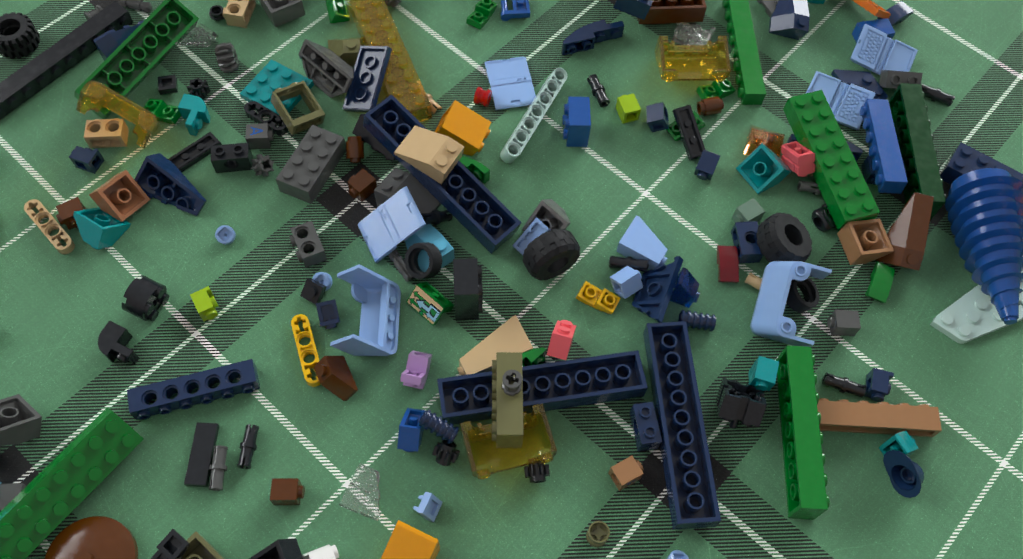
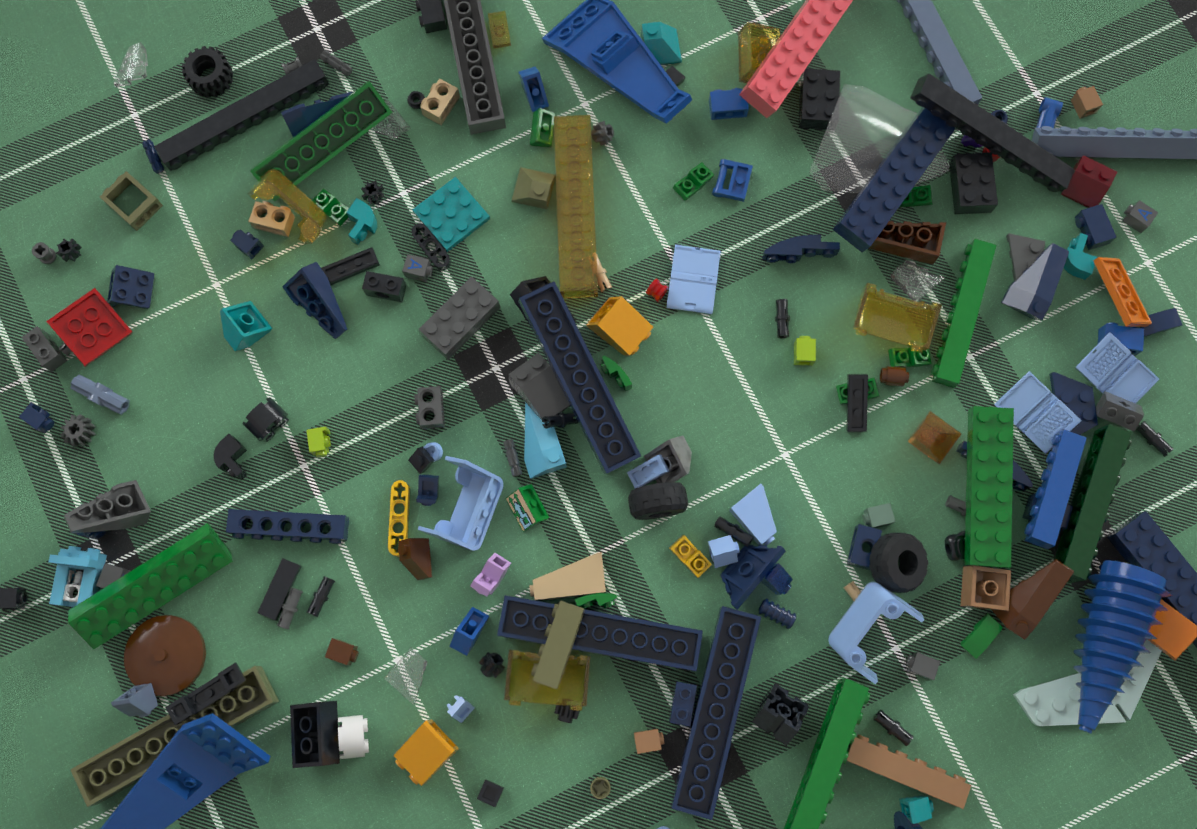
camera: 25 degrees right, 15 degrees up
(49, 226) = (199, 307): tan beam -> none
(67, 210) = (219, 300): reddish brown brick -> none
(120, 196) = (268, 298): nougat slope -> none
(167, 84) = (344, 176): black plate -> none
(225, 234) = (356, 371): light blue tile -> none
(227, 57) = (410, 164): dark grey gear -> none
(262, 165) = (414, 308): dark grey gear -> none
(304, 122) = (466, 226): olive window -> none
(326, 69) = (506, 210): dark grey wedge -> none
(354, 149) = (506, 315): reddish brown brick -> none
(361, 185) = (500, 358): reddish brown brick -> none
(367, 79) = (543, 236): dark blue tile -> none
(391, 224) = (514, 416): light blue piece -> none
(411, 260) = (542, 464): black tyre -> none
(430, 152) = (571, 358): tan slope -> none
(438, 426) = (490, 641): dark blue piece -> none
(467, 289) = (562, 513): black brick -> none
(507, 378) = (555, 639): dark grey bush -> none
(539, 108) = (710, 328): light aqua beam -> none
(561, 339) = (635, 593): coral brick -> none
(576, 122) = (740, 360): blue brick -> none
(657, 117) = (831, 373): dark blue brick -> none
(706, 165) = (858, 447): dark blue brick -> none
(728, 264) = (834, 563): dark red slope -> none
(763, 169) = (917, 470): teal slope -> none
(763, 373) = (813, 696): teal slope -> none
(798, 158) = (957, 473): coral brick -> none
(810, 294) = (902, 629): black tyre -> none
(878, 384) = (926, 740): dark blue brick -> none

